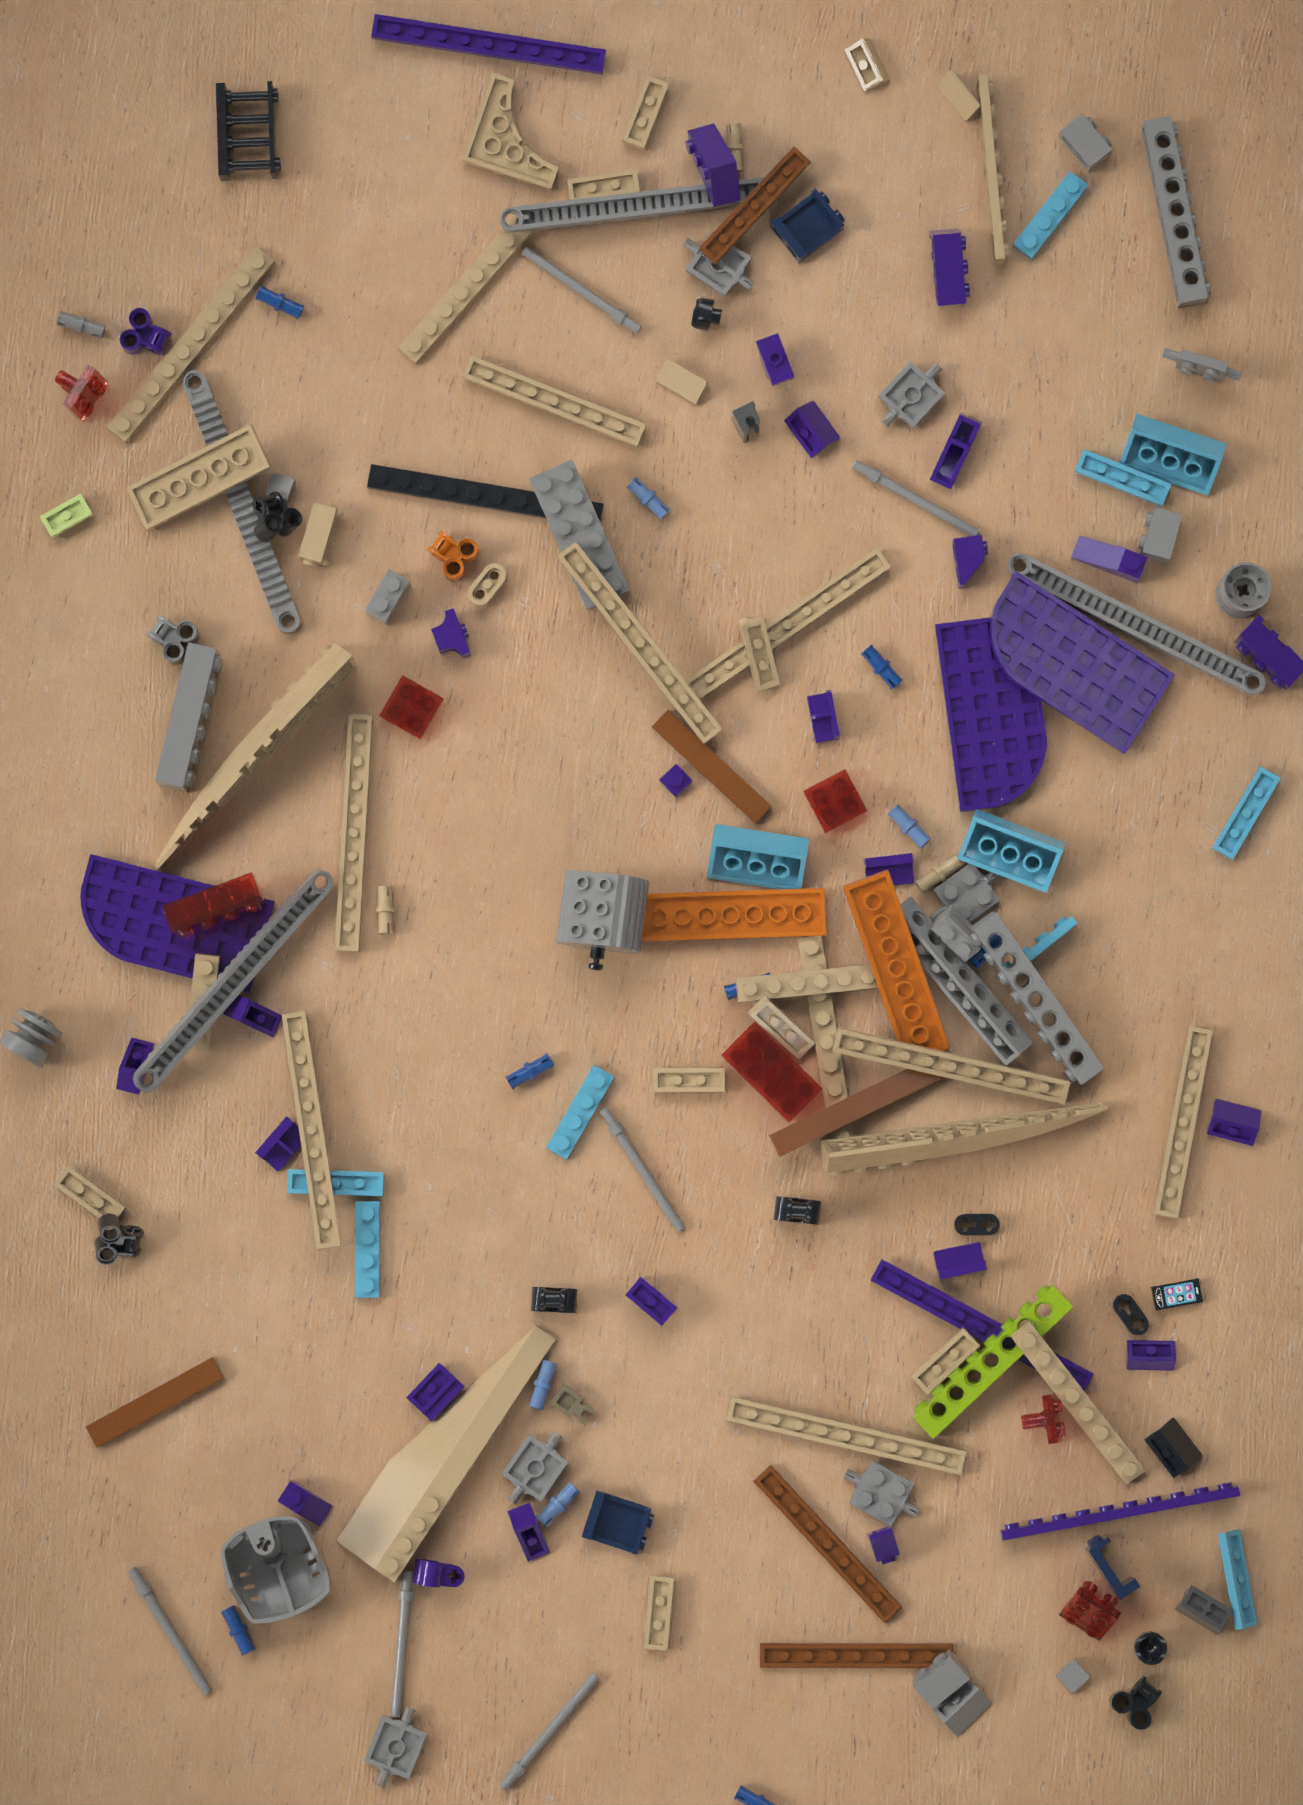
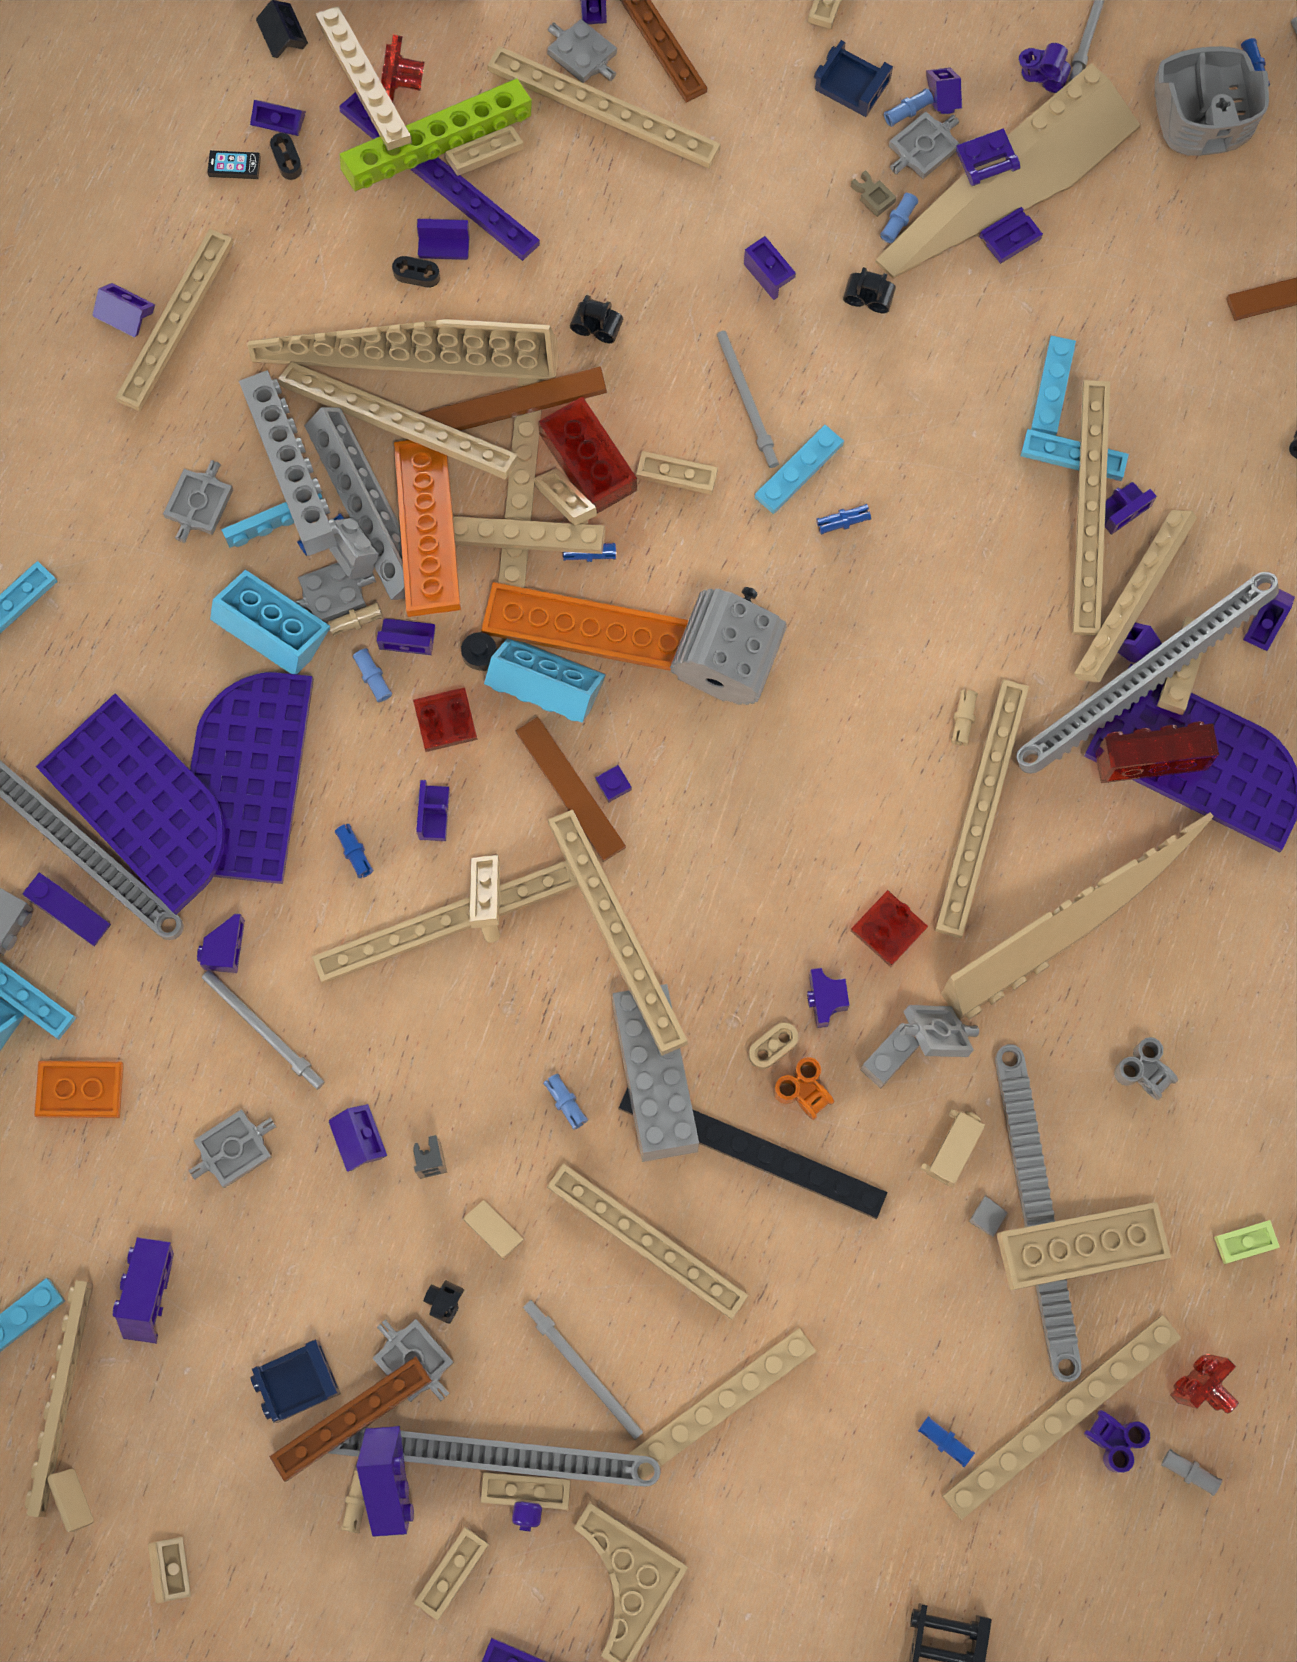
camera: 170 degrees left, 10 degrees down
(188, 717) = (1147, 969): light grey brick -> none
(256, 1056) = (1135, 596): none -> tan plate
(274, 517) = (1004, 1178): black piece -> none
(305, 1503) = (1168, 163): dark purple slope -> none
(352, 624) = (938, 1031): none -> light grey plate
(476, 1461) = (986, 150): none -> dark purple plate
(597, 167) = (526, 1515): none -> dark purple piece
(774, 360) = (377, 1223): dark purple brick -> none
(821, 869) = (478, 650): none -> black piece
(955, 450) = (200, 1072): dark purple slope -> none
(1053, 414) = (78, 1089): none -> orange tile
(1109, 950) = (198, 501): none -> light grey plate

